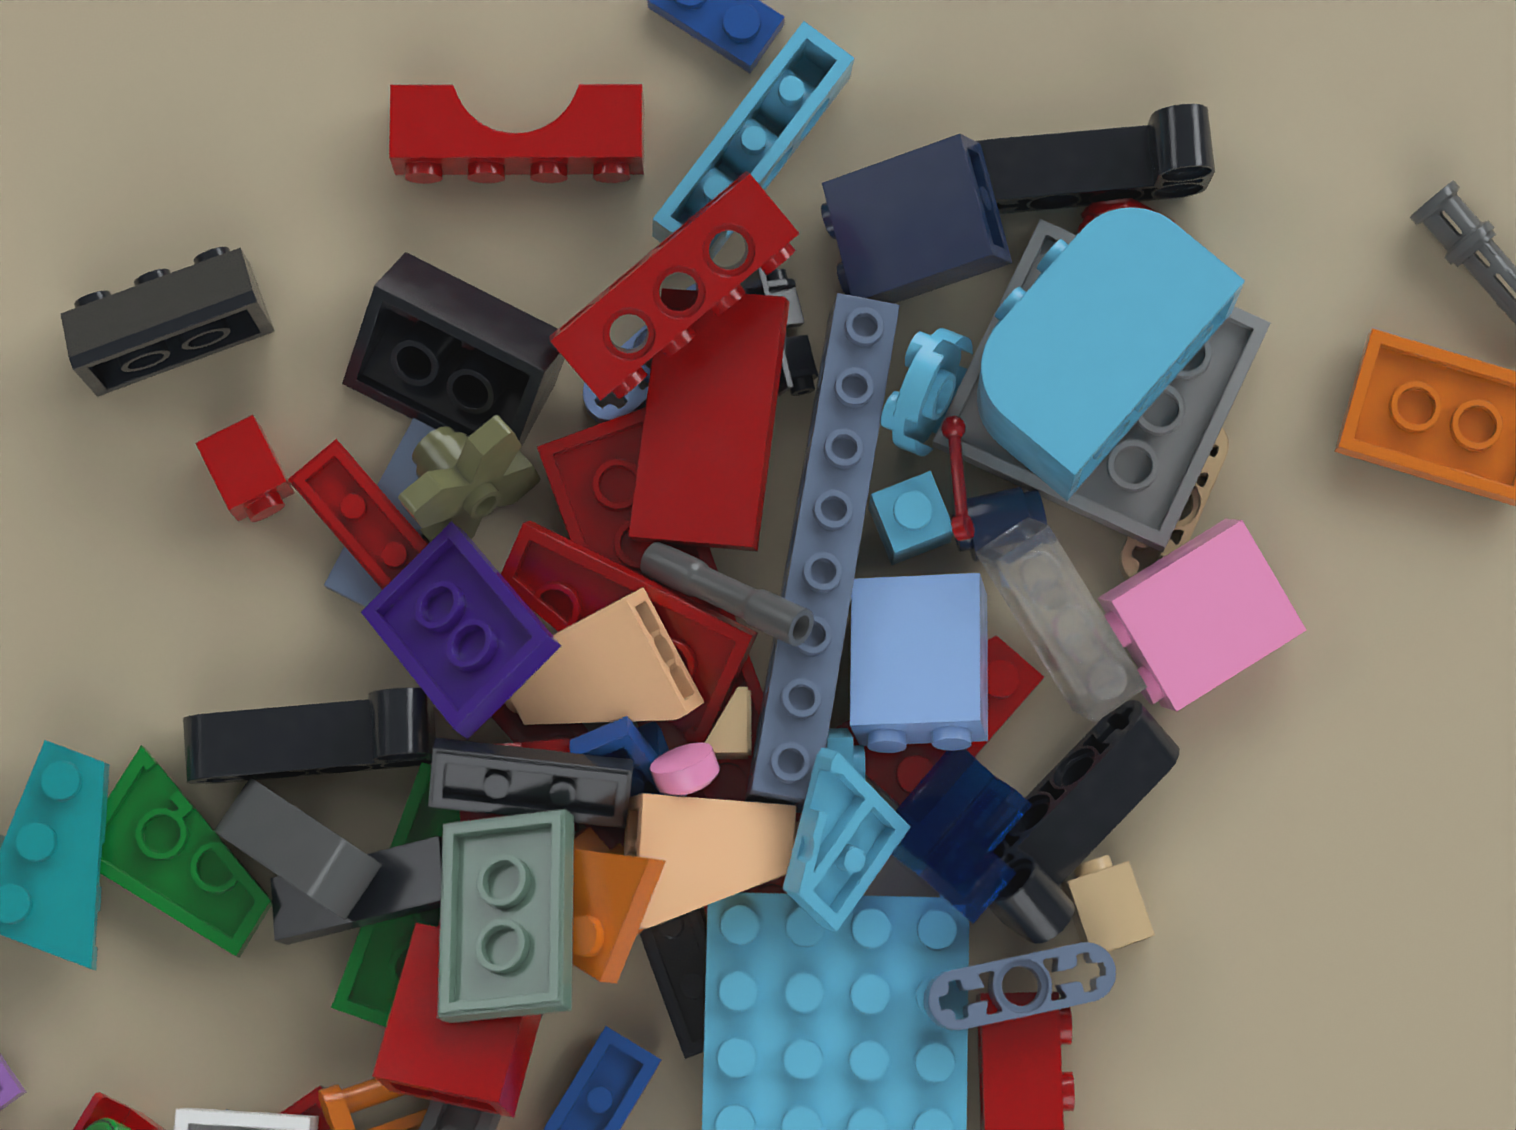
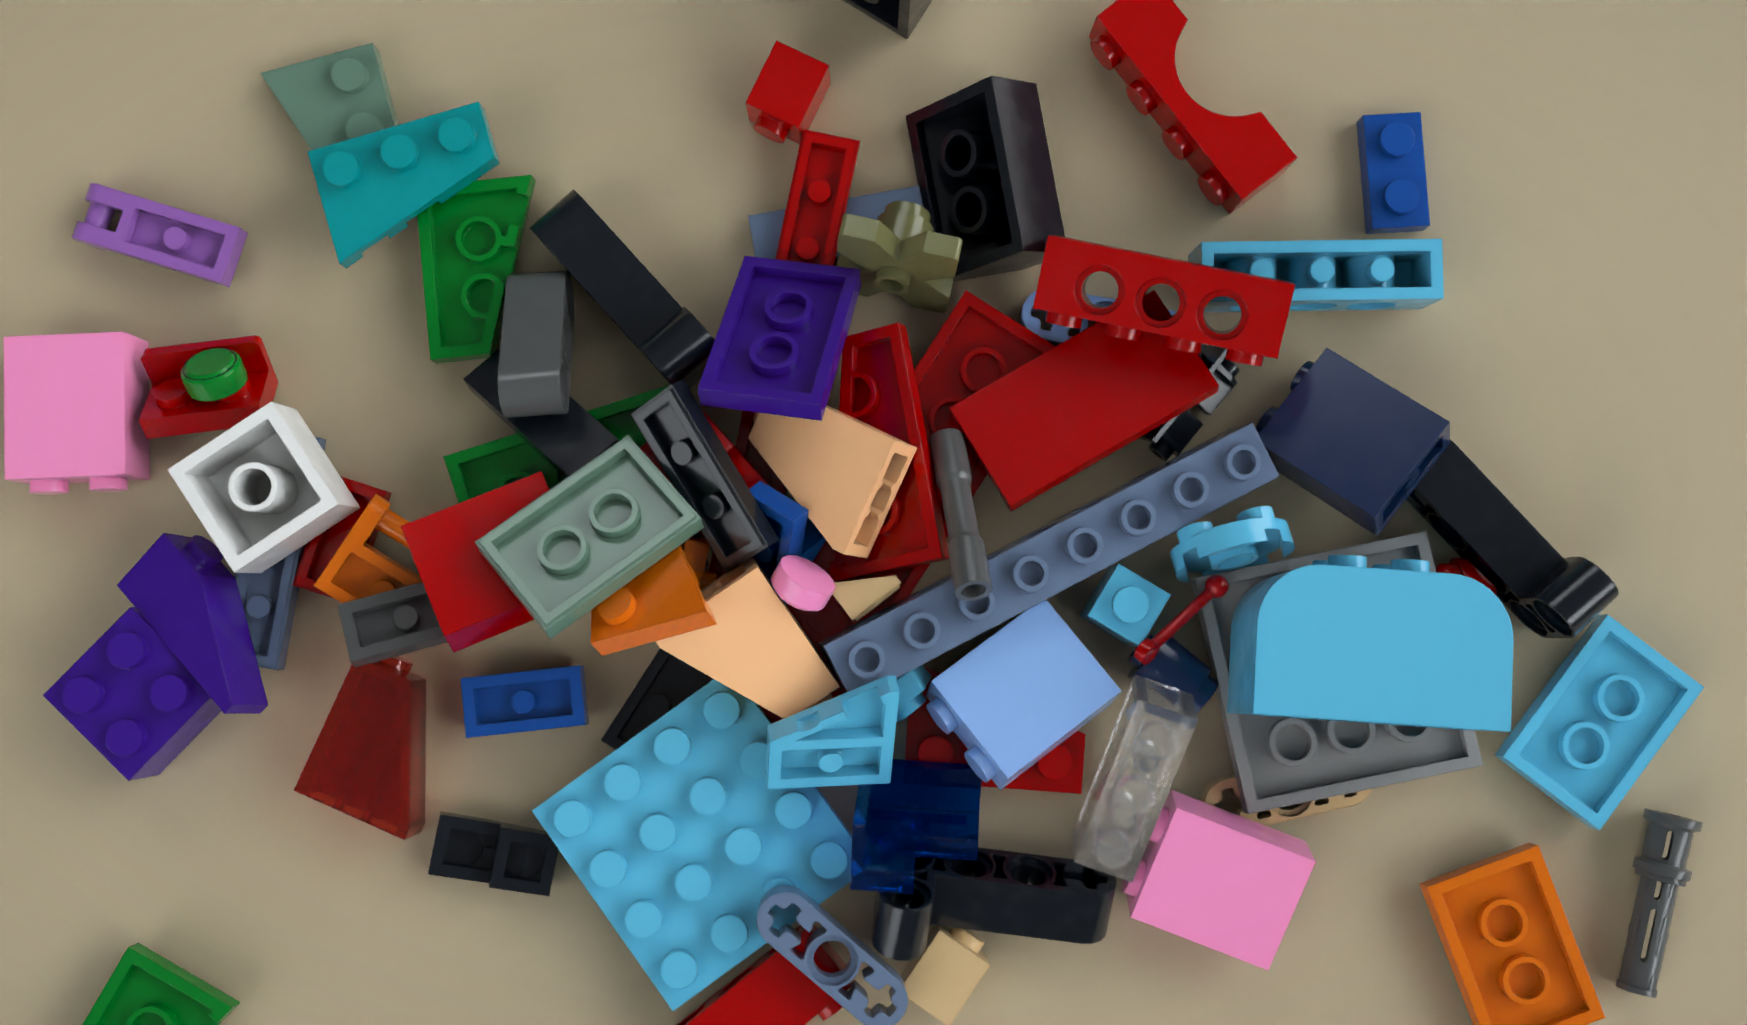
camera: 50 degrees right, 5 degrees up
(1308, 199) = (1599, 721): none -> medium azure plate

